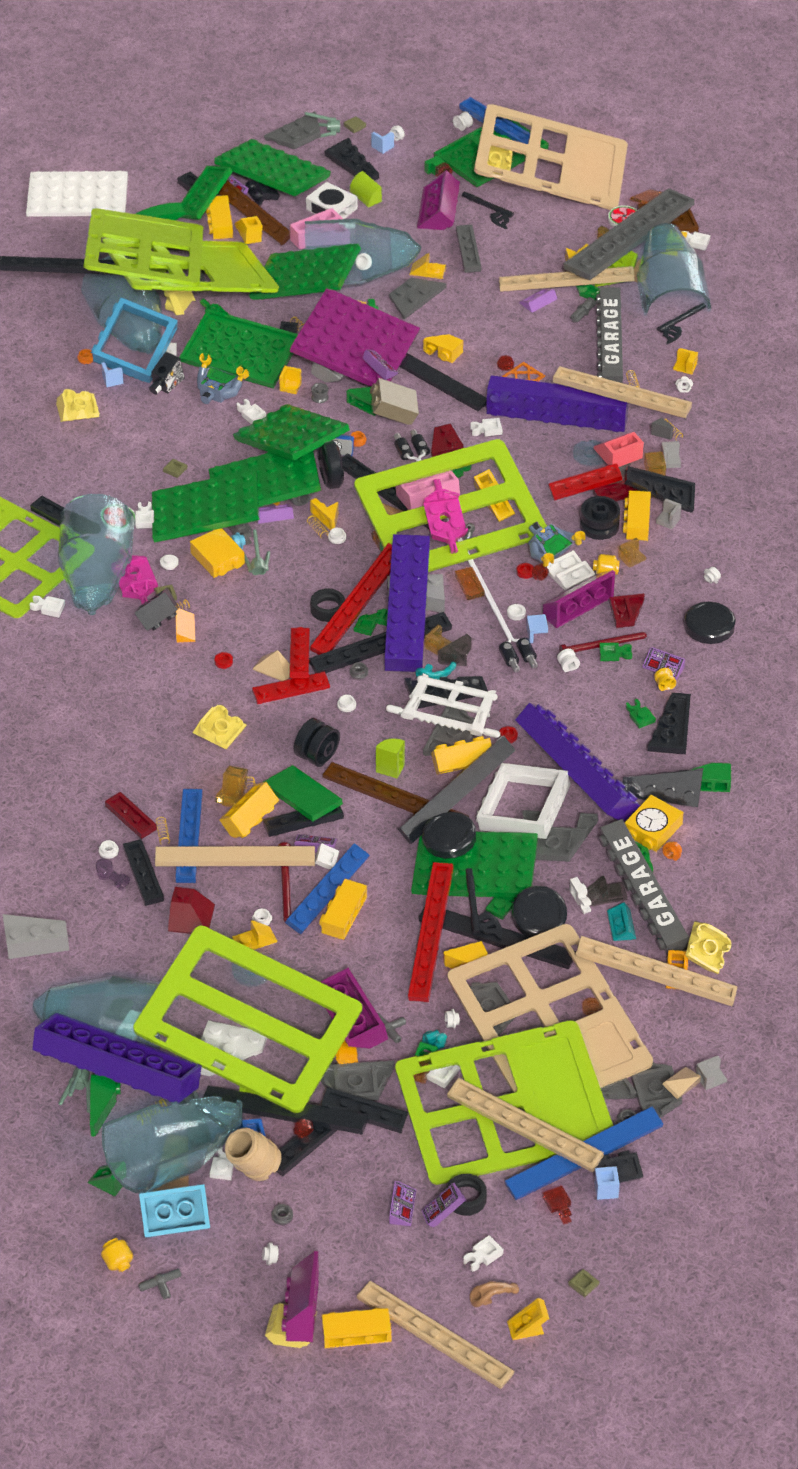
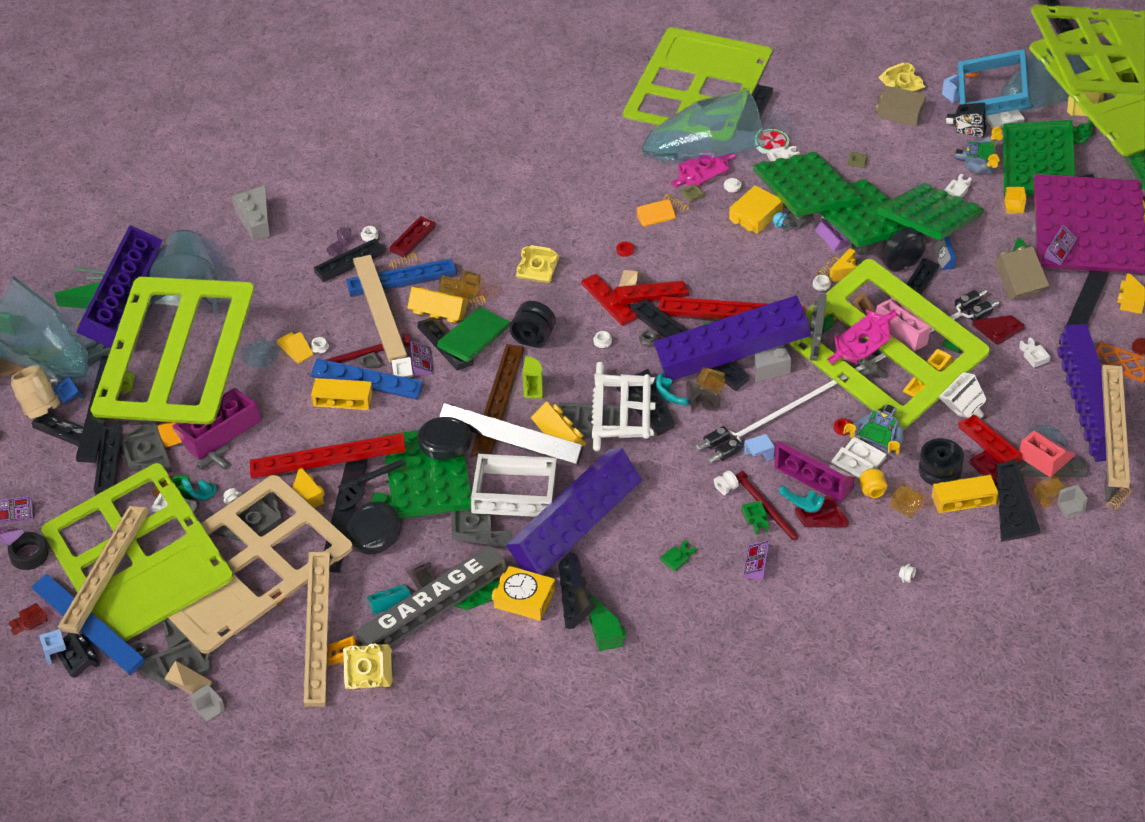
camera: 75 degrees right, 0 degrees up
(50, 606) = (641, 127): white plate -> none
(117, 415) = (900, 105): none -> dark tan brick
(157, 609) = (658, 186): slope -> none
(189, 910) = (310, 298): dark red slope -> none
(232, 1040) = (151, 353): white plate -> none
(258, 565) = (755, 238): sand green plant -> none
(299, 882) = (370, 361): none -> dark grey tile
(303, 1128) = (73, 420): clear red plate -> none
(319, 393) = (1011, 225): dark grey wheel -> none
(325, 595) = (724, 287): black tyre -> none
(359, 438) = (964, 266): orange plate -> none
(412, 526) = (817, 325): none -> dark grey wing
(469, 583) = (801, 387): clear orange plate -> none
(516, 612) = (781, 432): white tile -> none
(537, 481) = (964, 396): none -> white torso
(540, 572) = (841, 438): clear red plate -> none
(579, 894) = (412, 554): white plate -> none
(621, 608) = (811, 503): none -> teal piece
(665, 679) = (732, 563): yellow wheel -> none
(670, 514) = (978, 521): light grey panel -> none
(672, 726) = (659, 585): black wing -> none
(672, 850) = (493, 616): orange plate -> none
(709, 622) = (833, 584): black piece -> none

